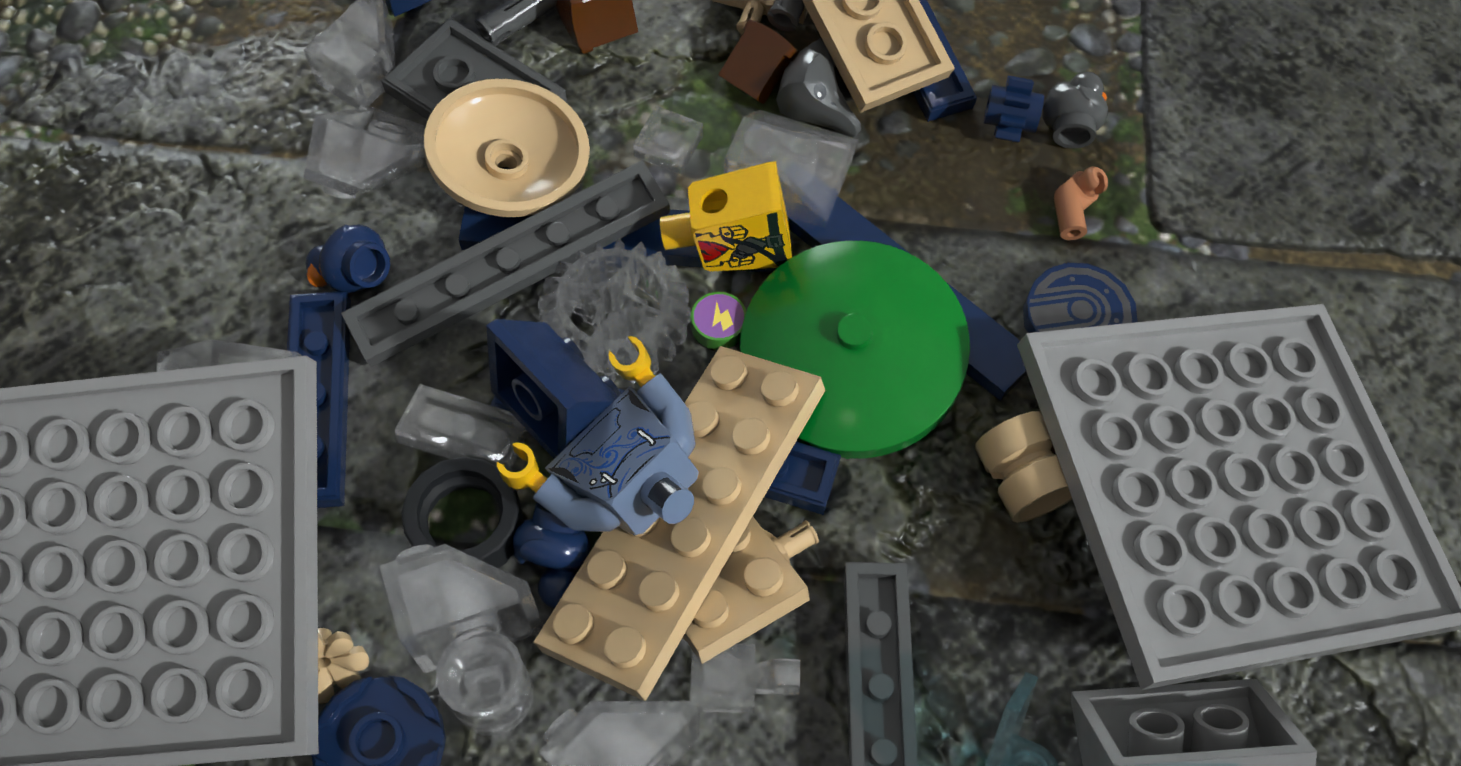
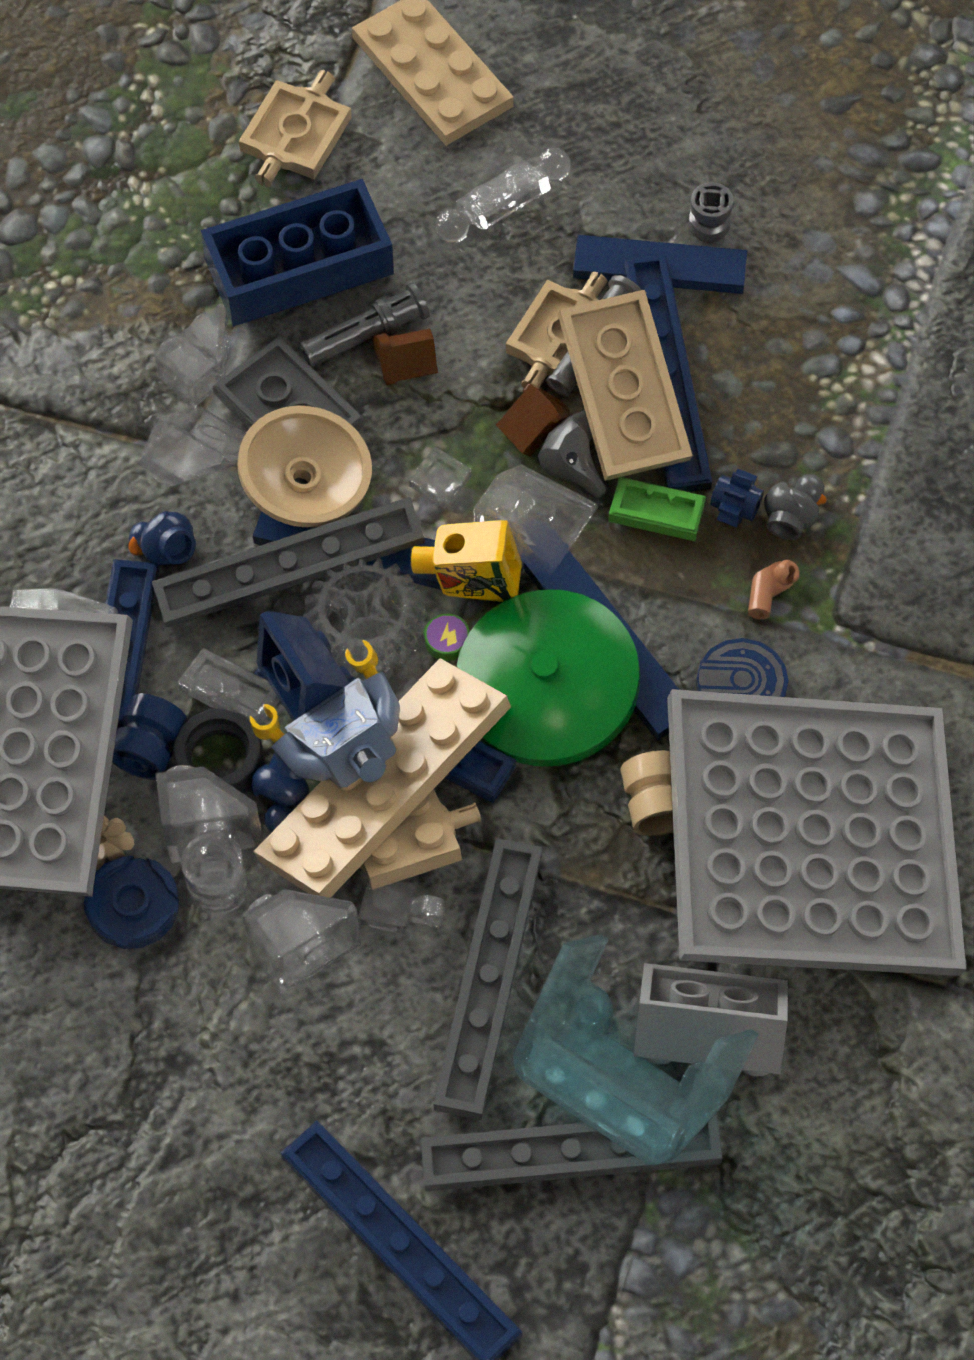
camera: 15 degrees right, 0 degrees up
(366, 502) = (148, 732): none -> dark blue wheel
(925, 136) = (657, 509): none -> bright green plate

